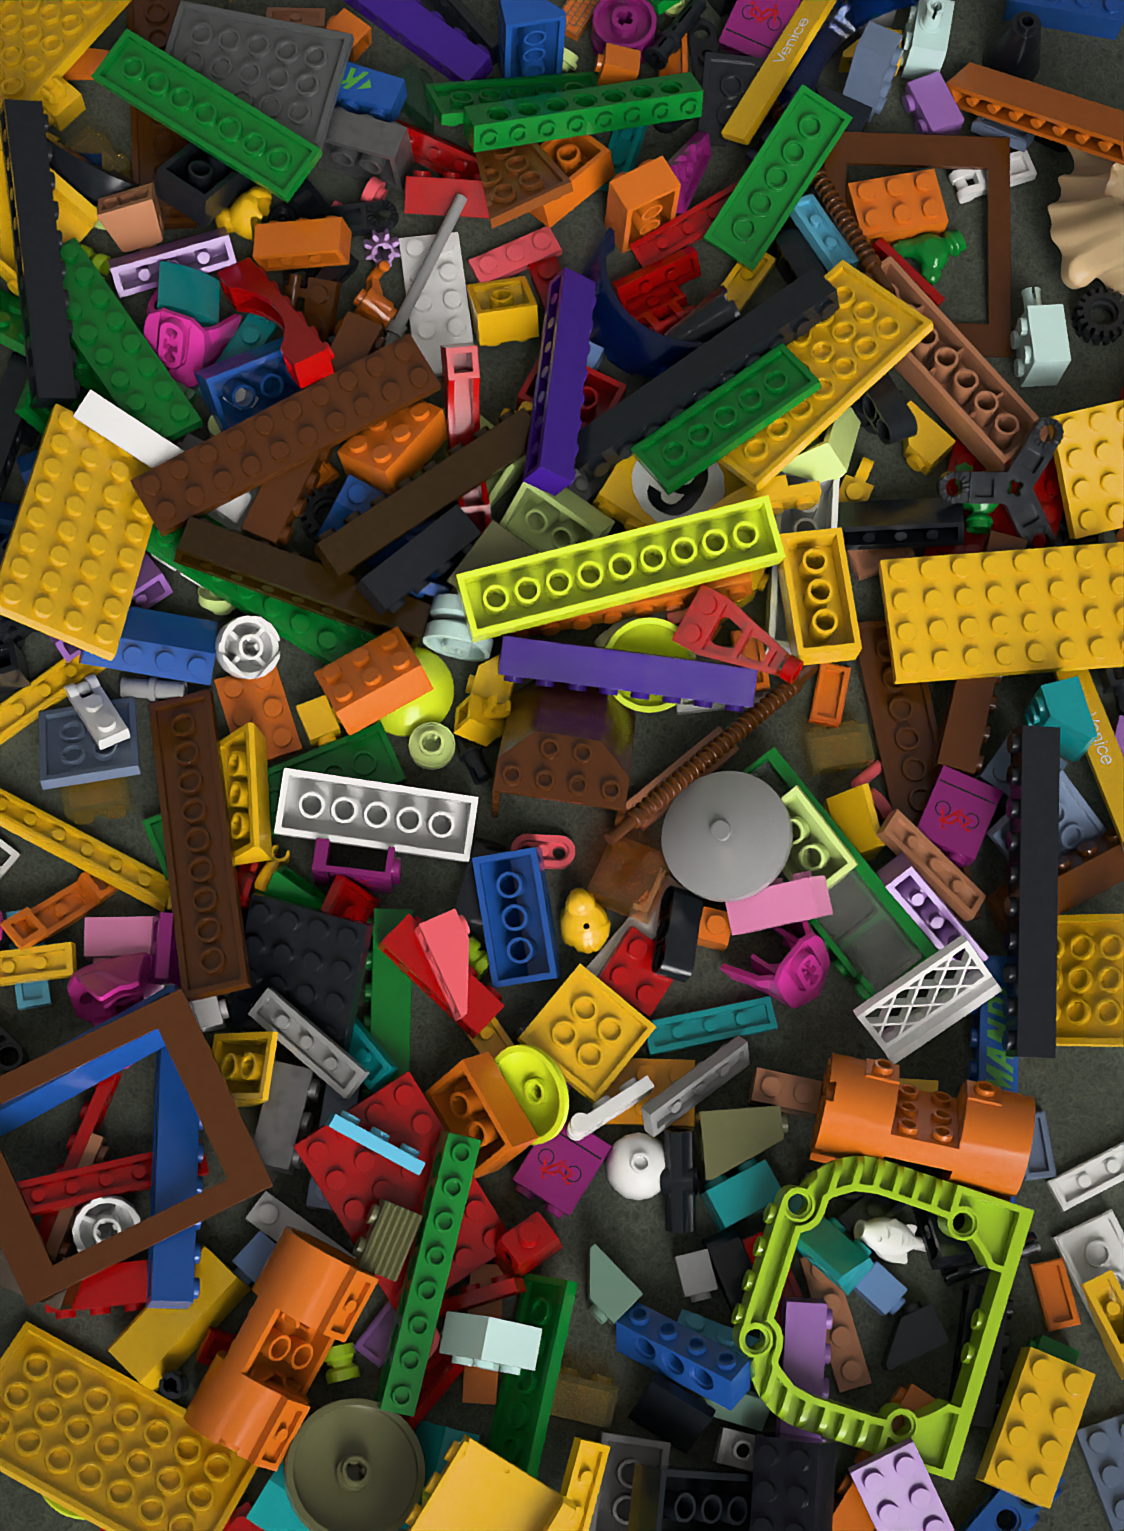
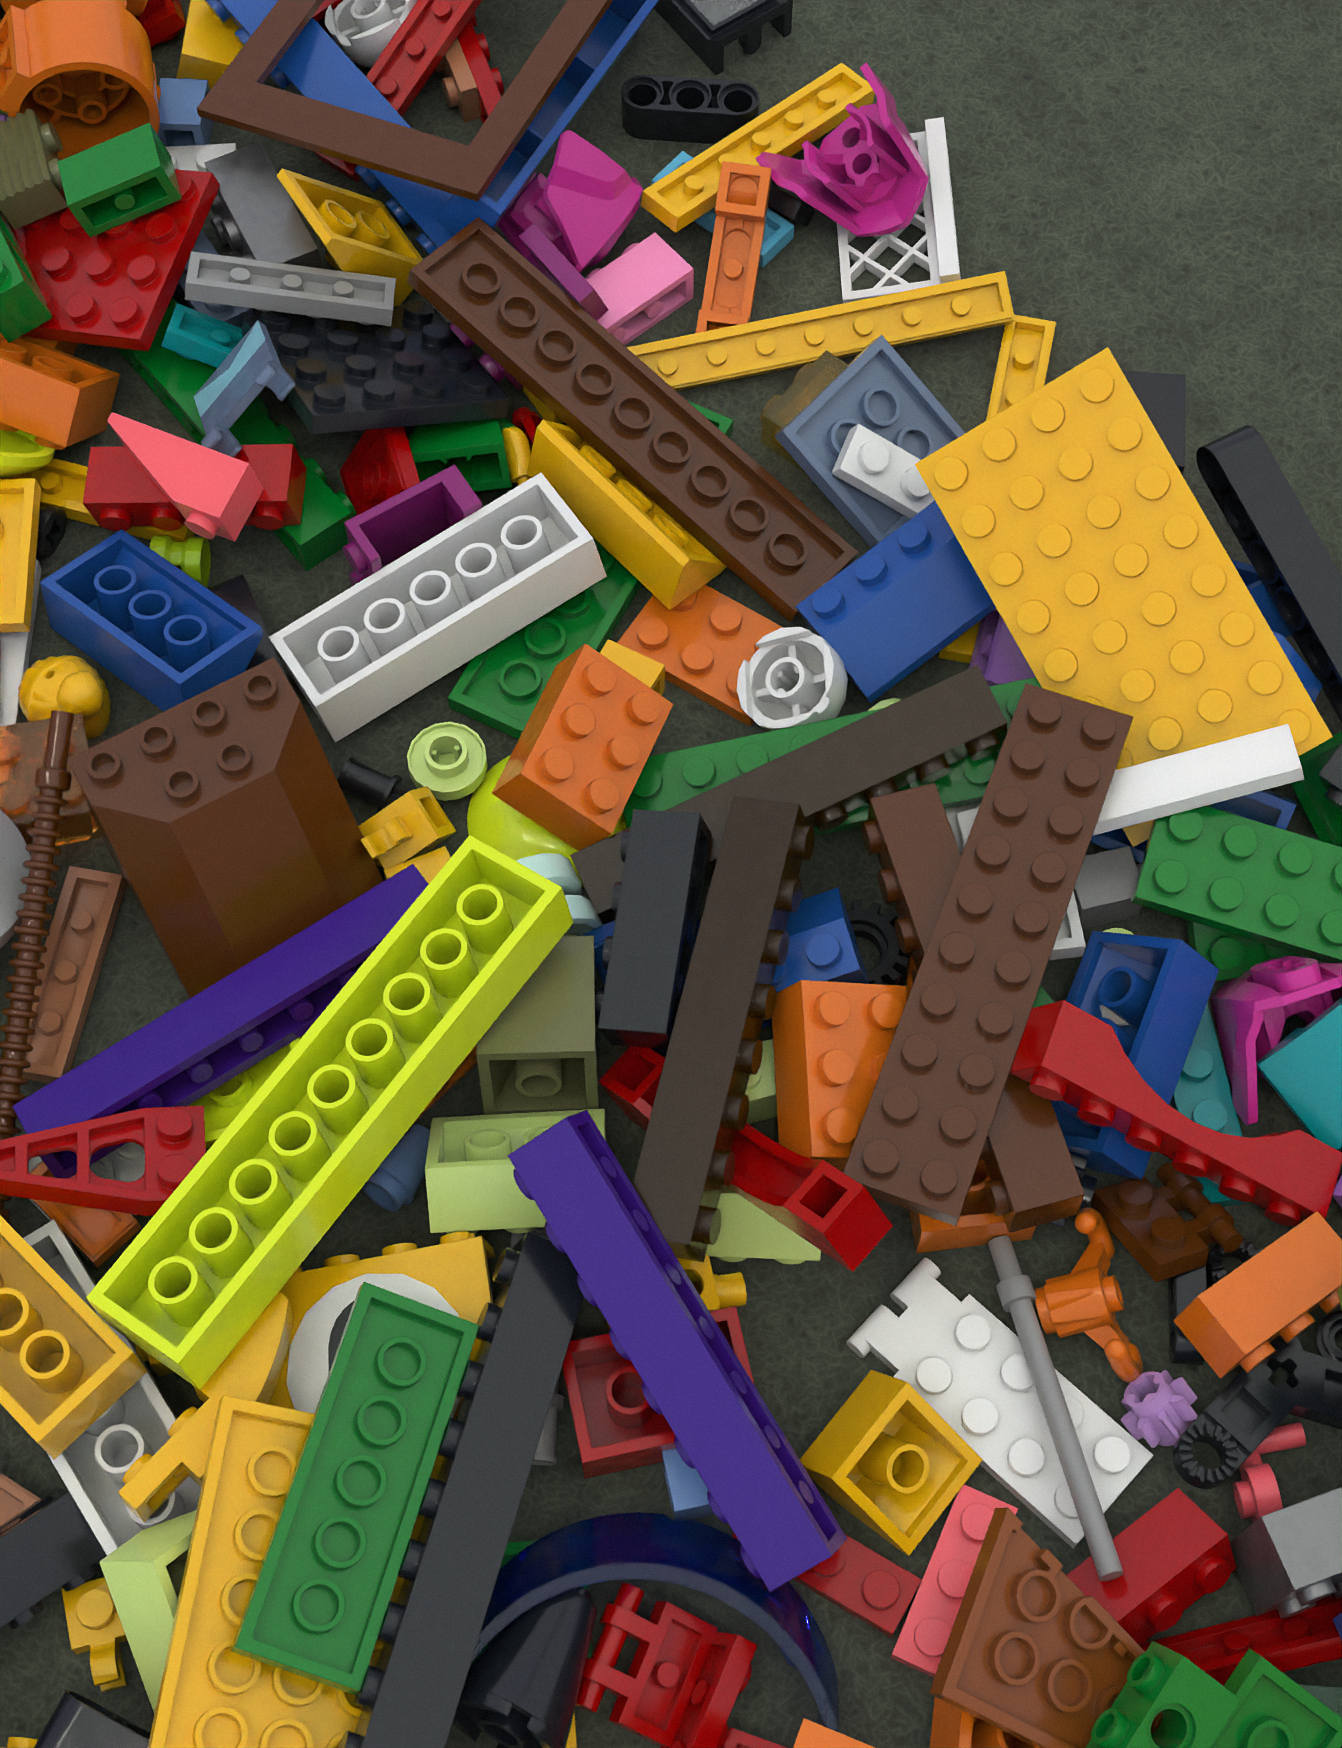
camera: 150 degrees right, 10 degrees down
(348, 1173) = (119, 180): none -> green brick
(376, 1141) = (112, 225): medium azure plate -> none
(382, 1000) = (236, 385): none -> sand blue flag

